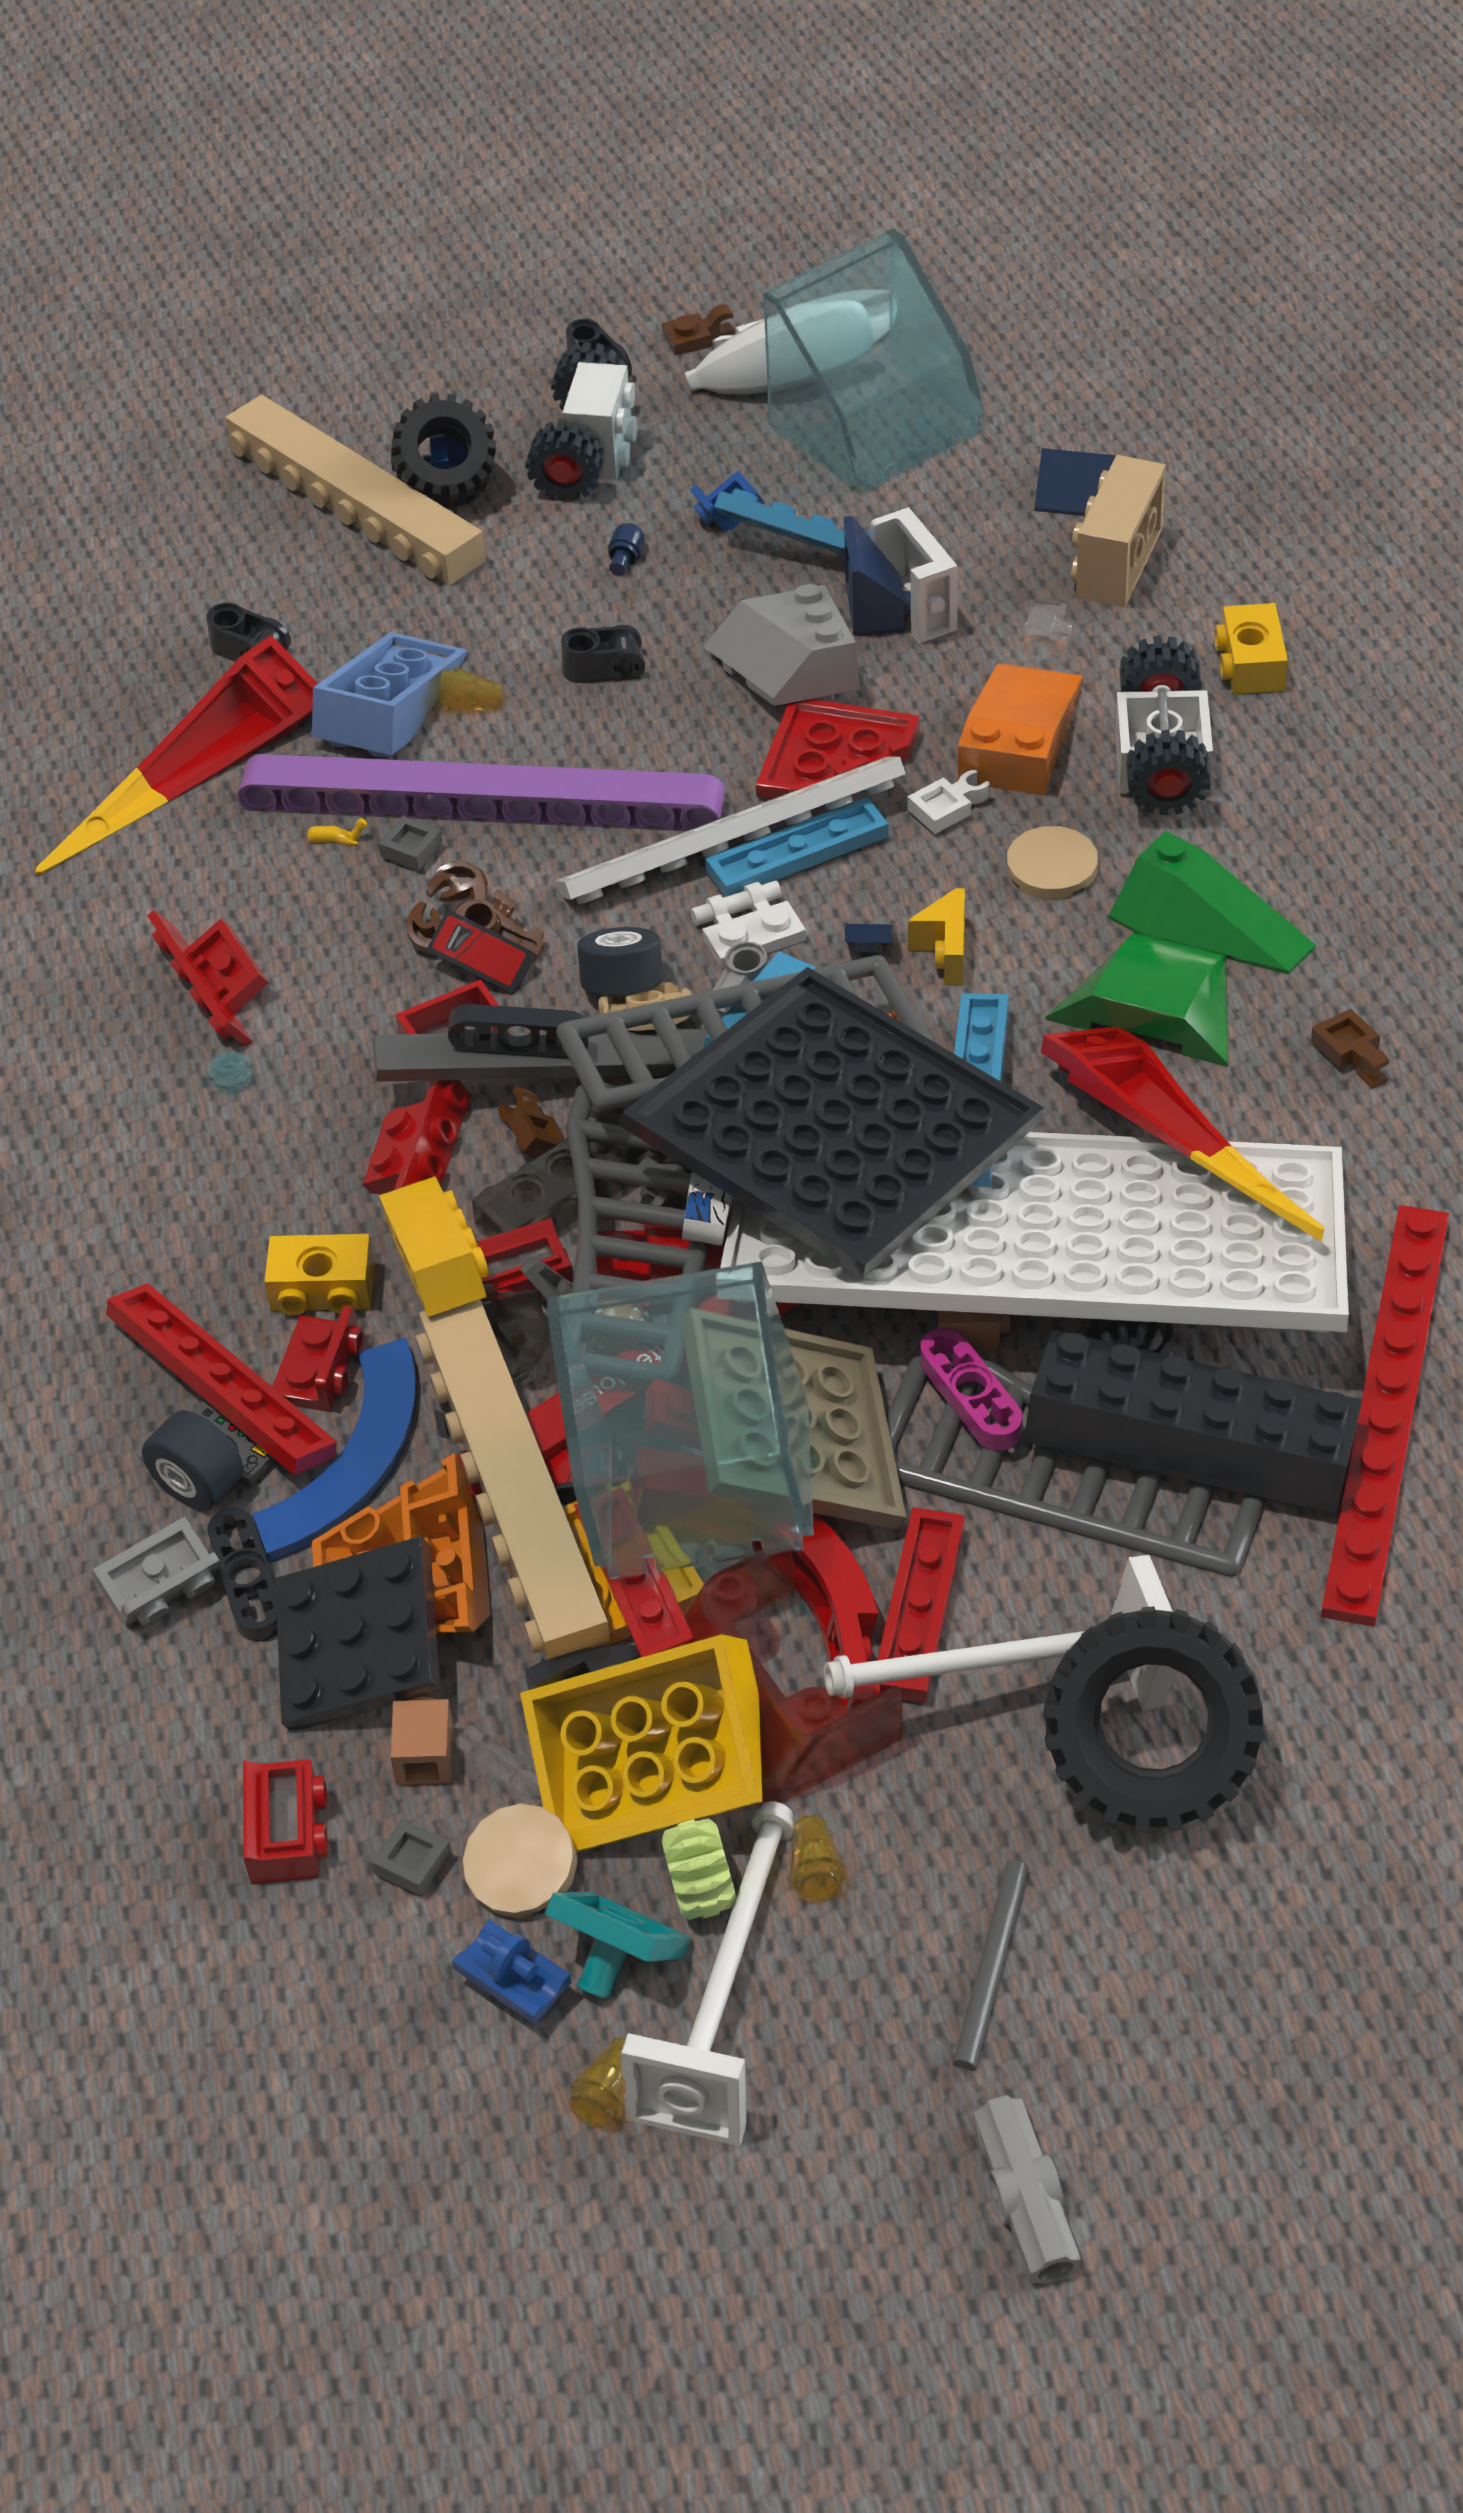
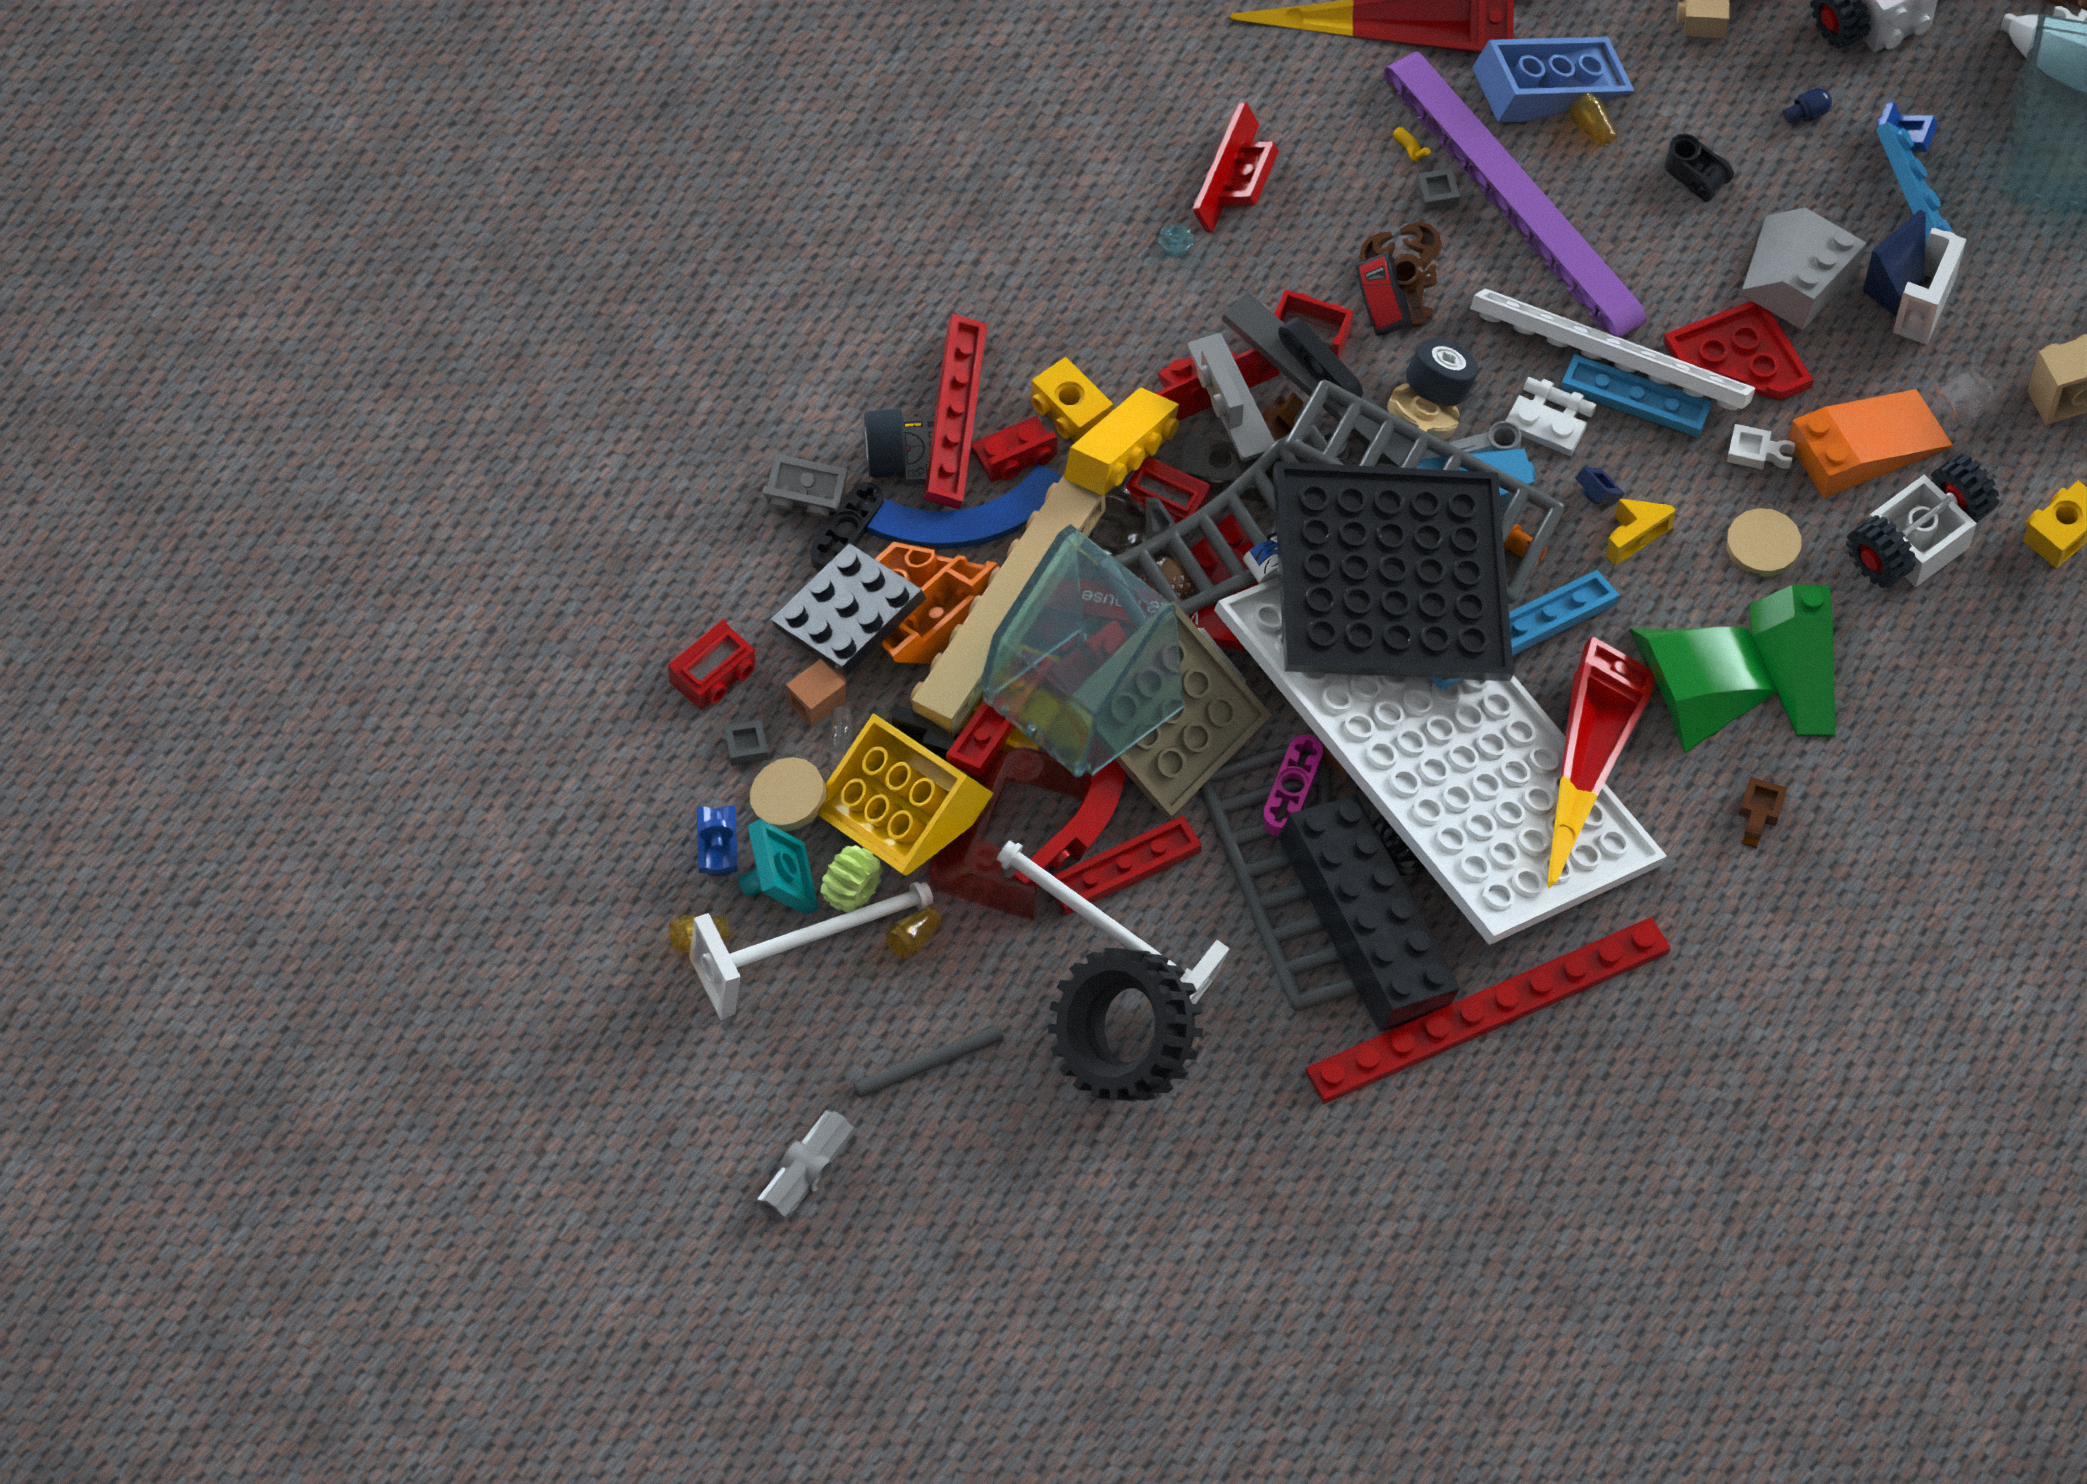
camera: 45 degrees right, 10 degrees up
(472, 1127) = (1230, 396): none -> light grey bracket

